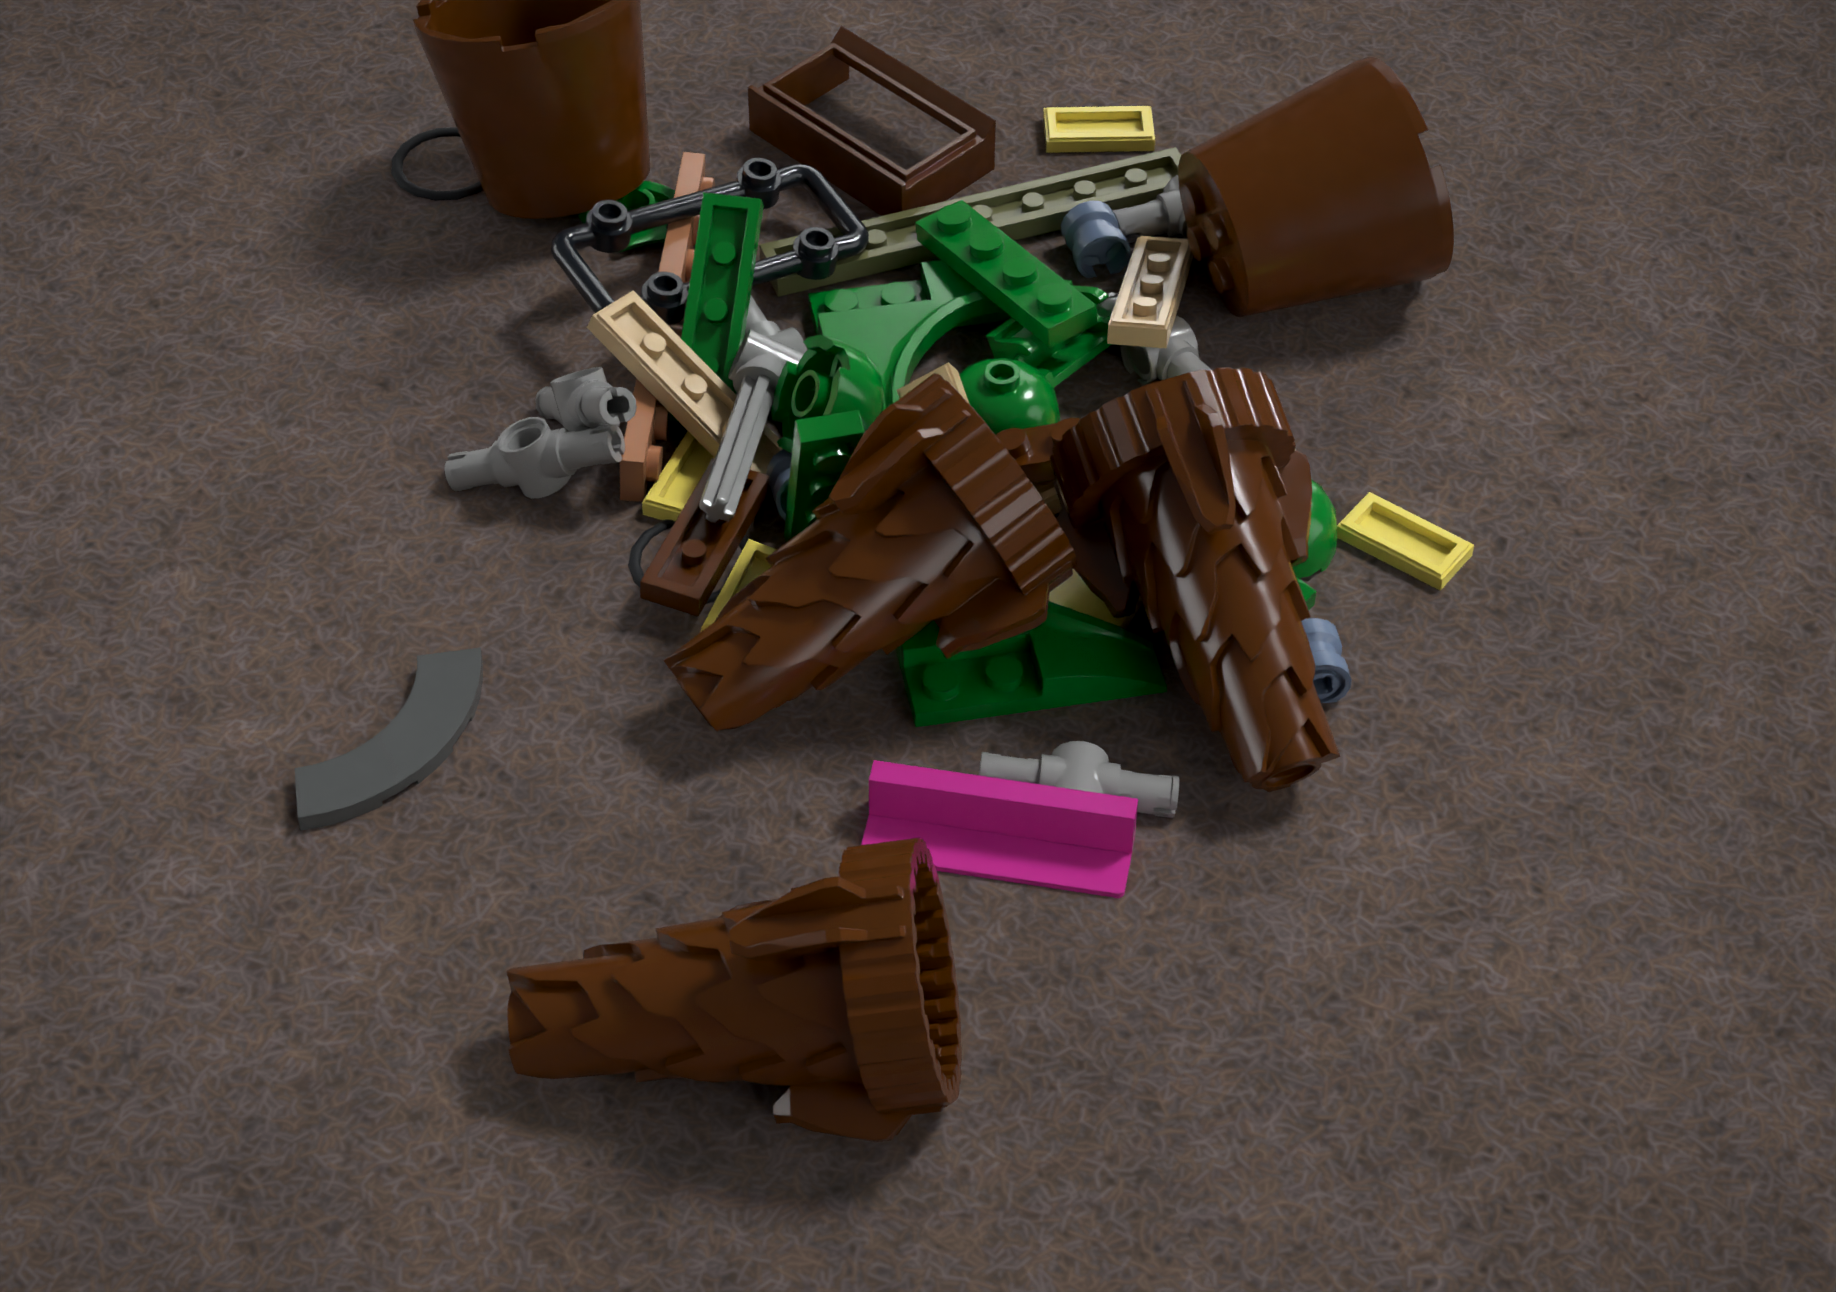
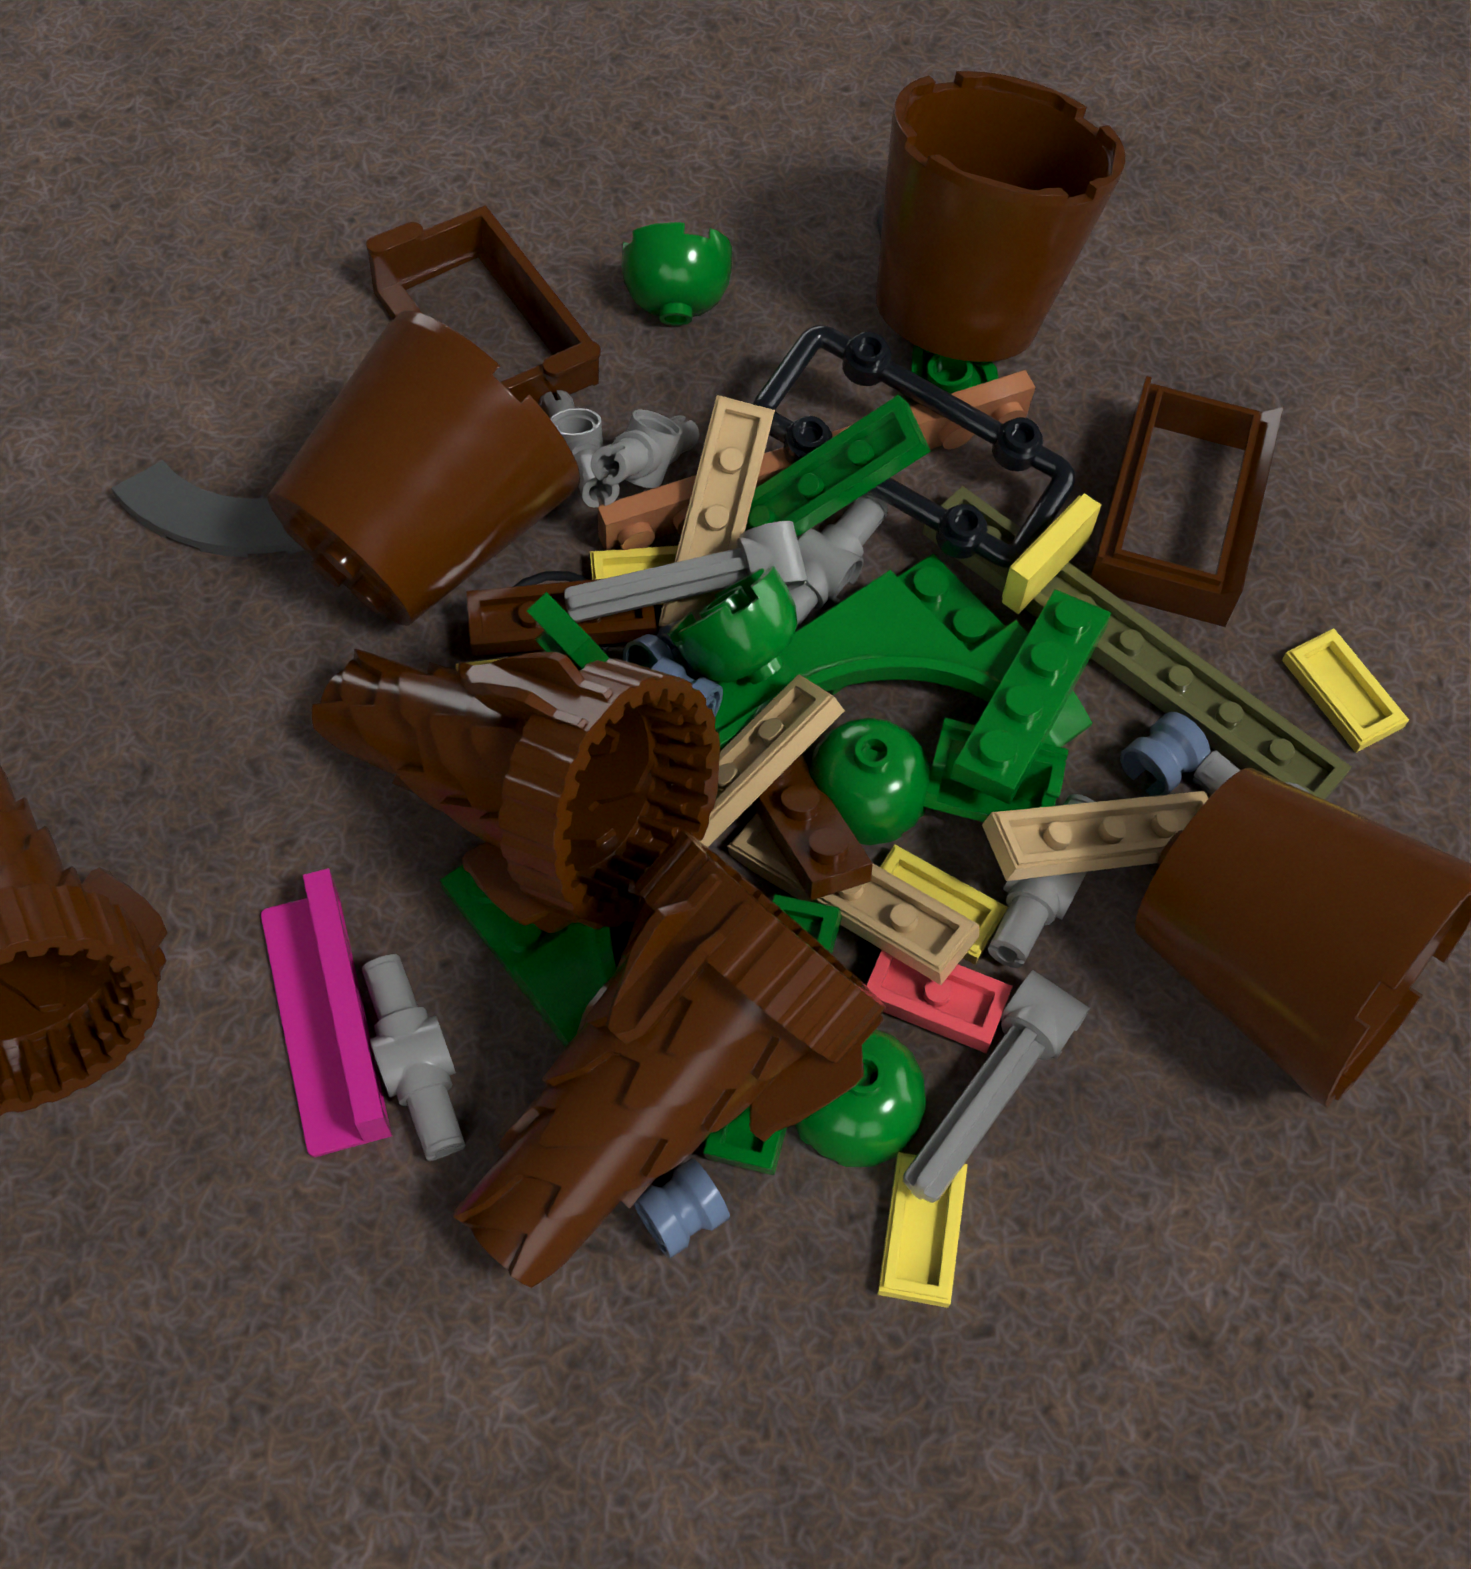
camera: 60 degrees right, 15 degrees up
(310, 438) = (414, 255): none -> reddish brown piece
(386, 325) = (676, 271): none -> green cylinder
(516, 530) = (420, 471): none -> reddish brown cone
(880, 209) = (1050, 552): none -> light yellow tile
(1326, 452) = (1035, 1028): none -> light grey axle

